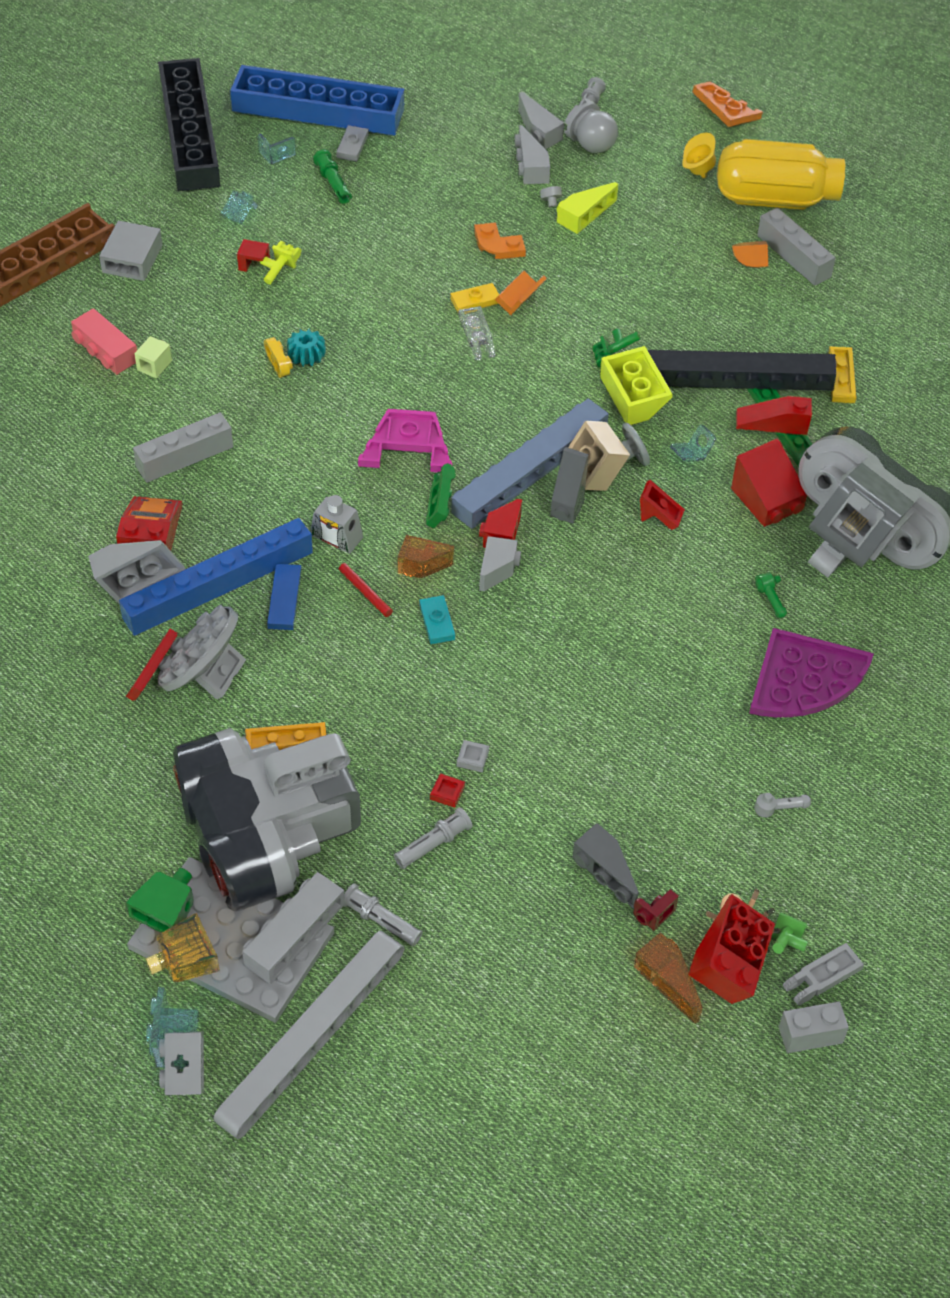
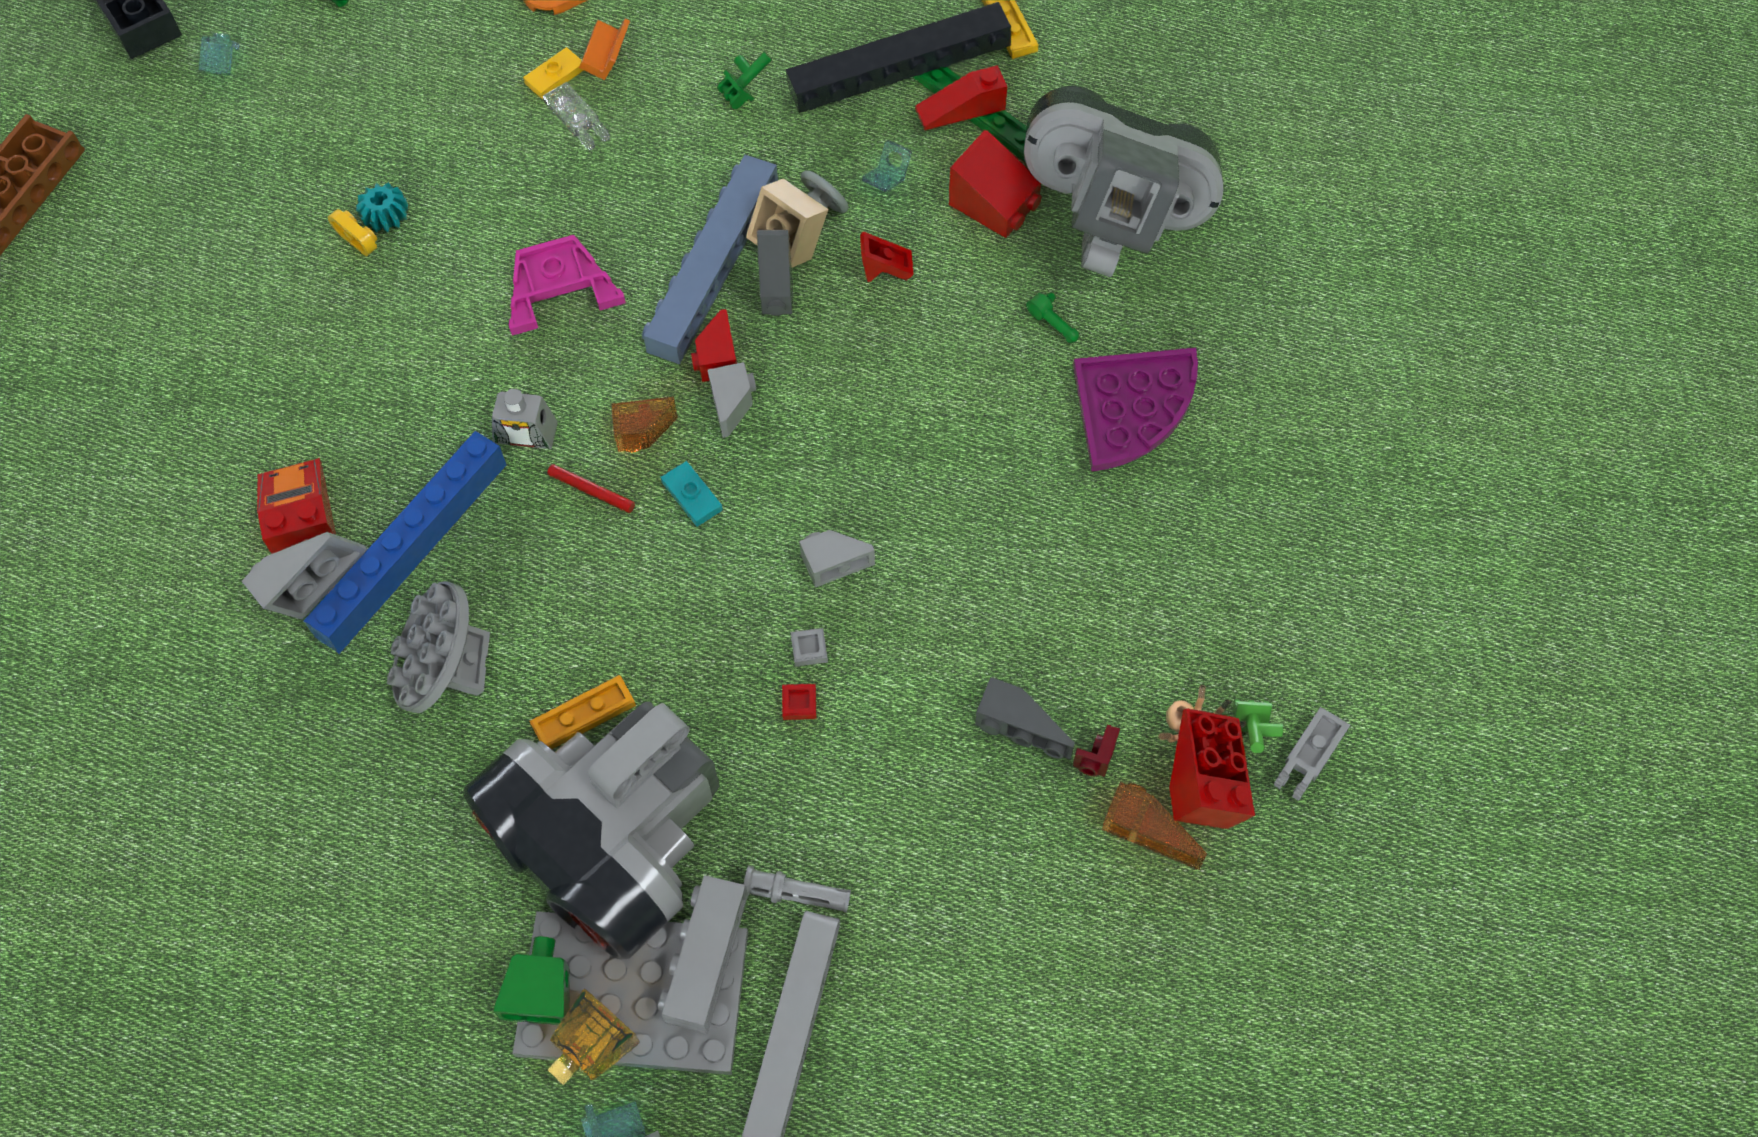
camera: 20 degrees left, 10 degrees up
(104, 341) = (129, 287): coral brick -> none
(131, 250) = (108, 157): light grey brick -> none
(152, 665) = (380, 685): red tile -> none
(153, 357) = (200, 286): yellowish green brick -> none
(183, 447) = (290, 390): light grey brick -> none
(249, 251) = (262, 106): red panel -> none
(283, 255) = (301, 98): neon yellow arm -> none
(284, 597) = (499, 534): blue tile -> none
(439, 495) = (626, 338): green hinge -> none
(443, 832) = (819, 756): light grey pin -> none
(522, 699) = (834, 556): none -> light grey slope
(634, 384) = (789, 118): neon yellow slope -> none
(767, 804) = (1160, 573): light grey piece -> none
(813, 1027) = (1331, 822): light grey brick -> none

